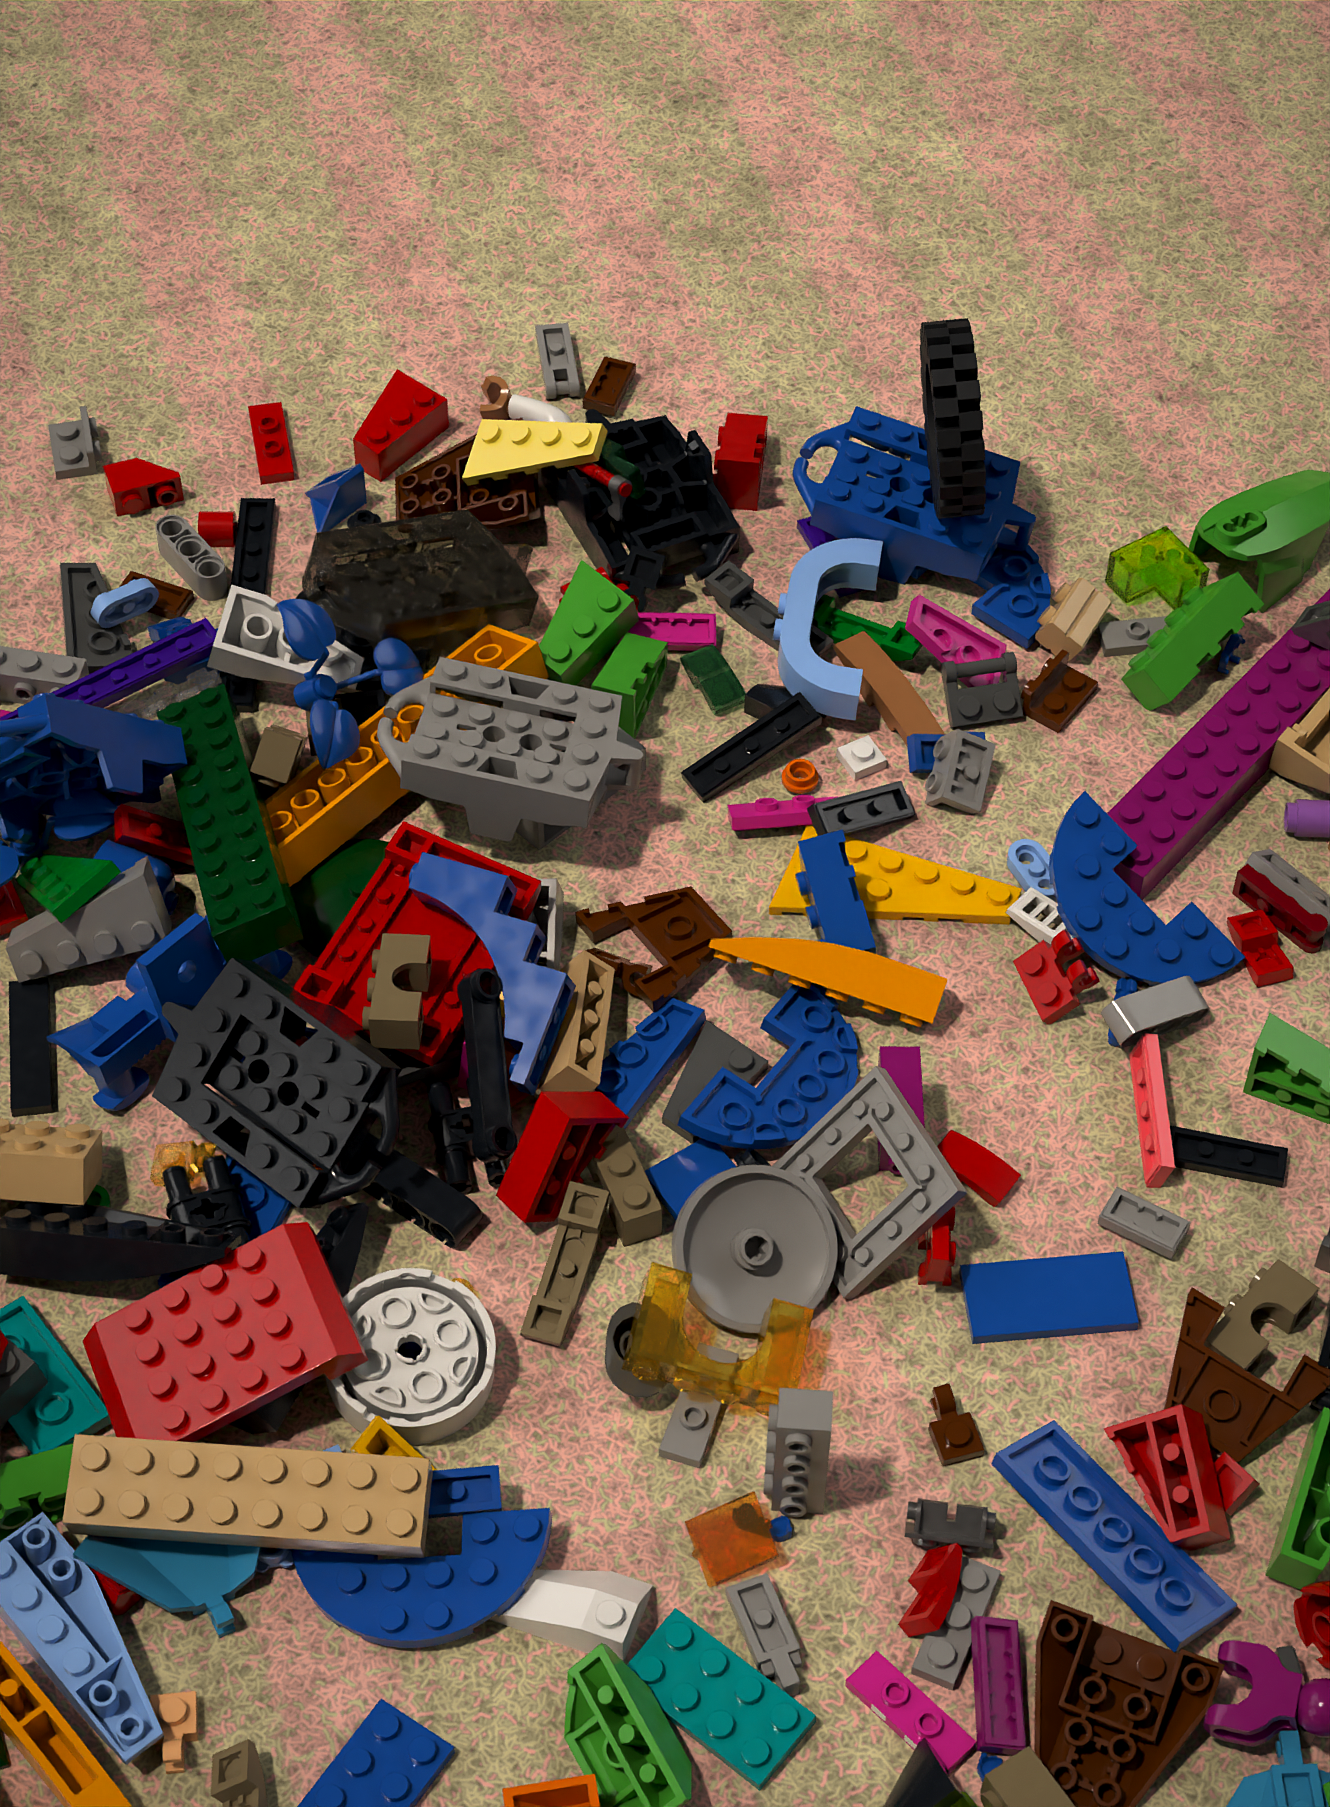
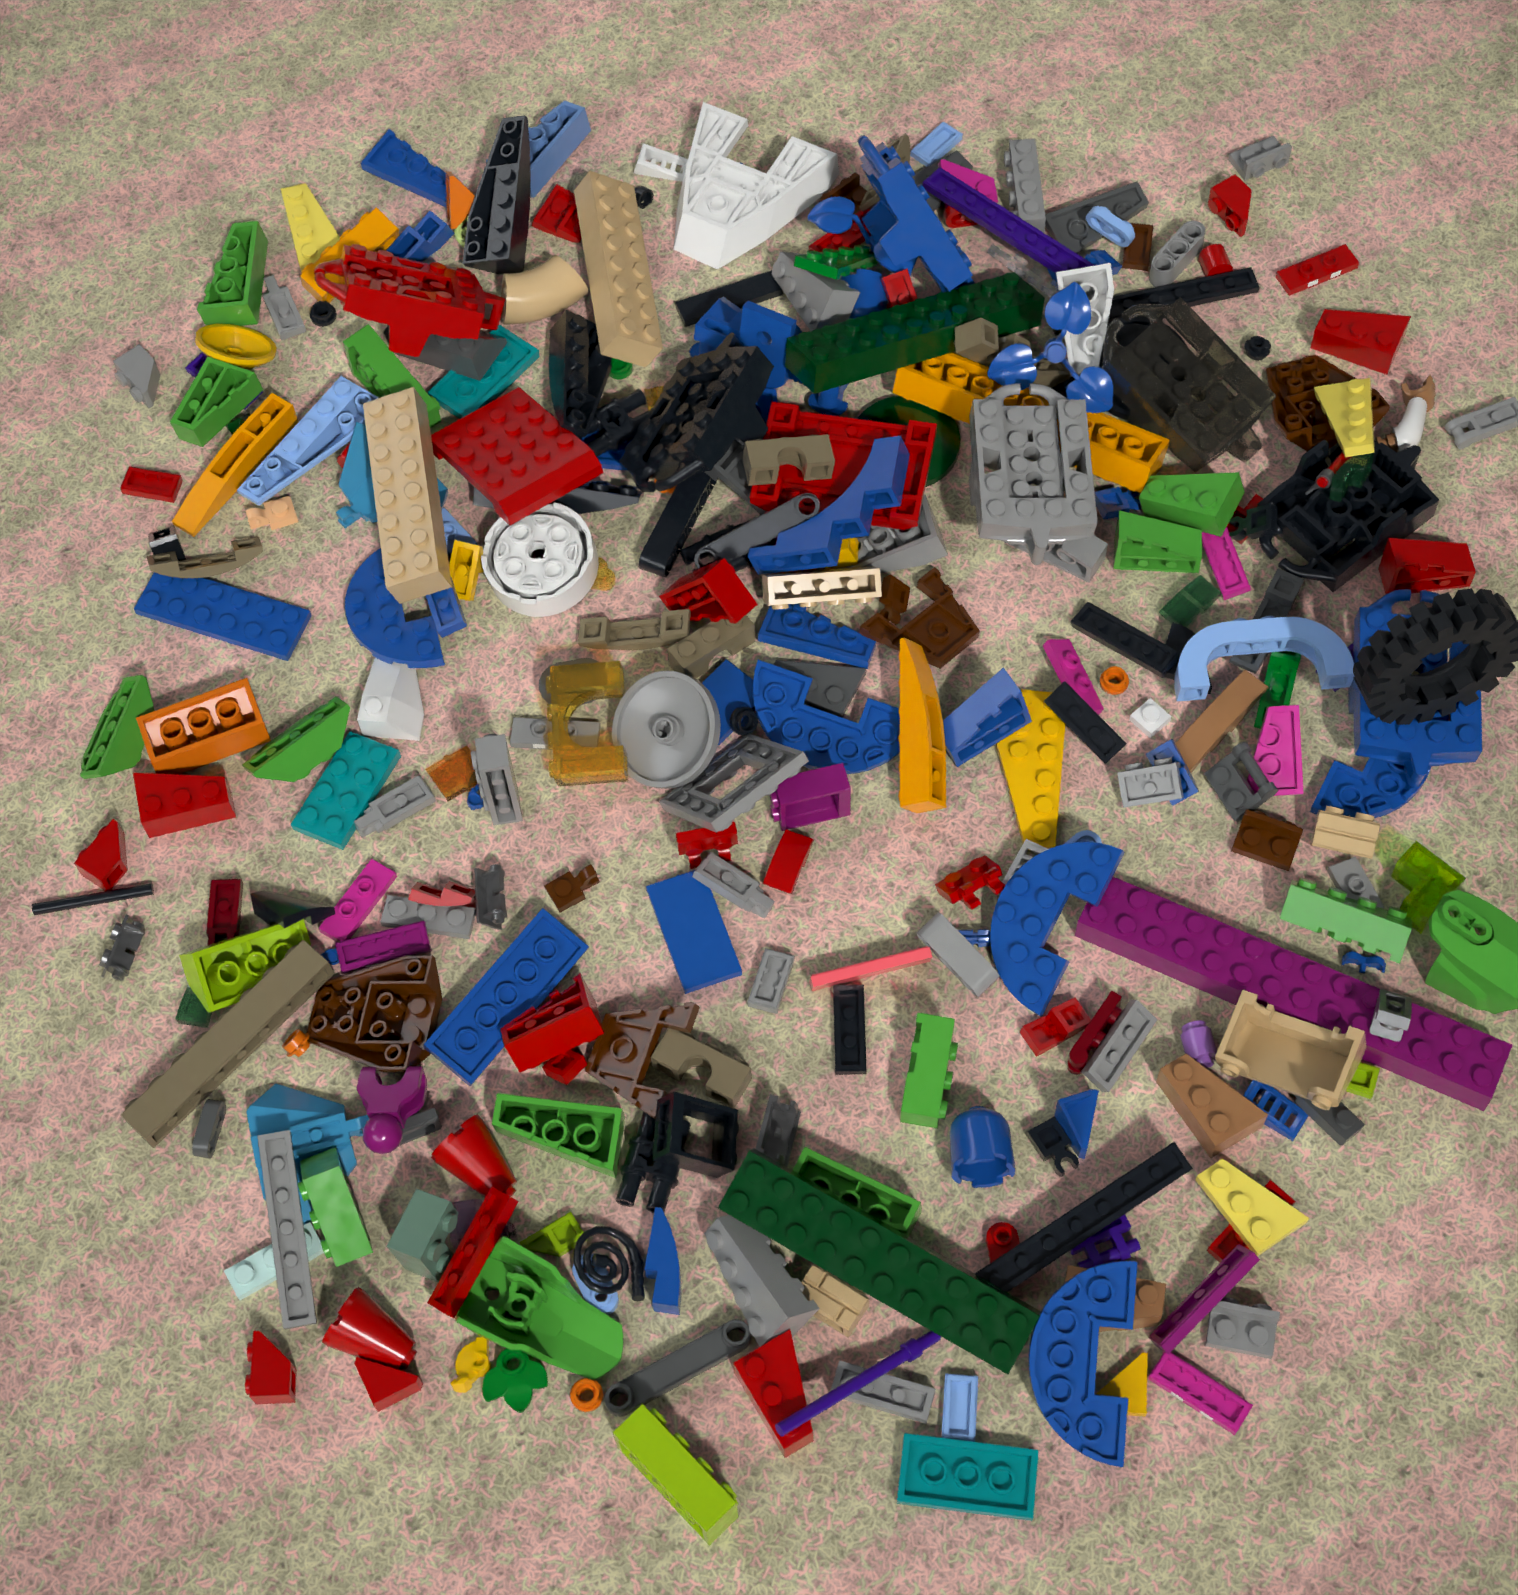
camera: 80 degrees right, 10 degrees up
(337, 497) = (1275, 324): blue slope -> none
(609, 386) = (1474, 463): reddish brown plate -> none
(999, 1231) = (733, 885): none -> light grey hinge

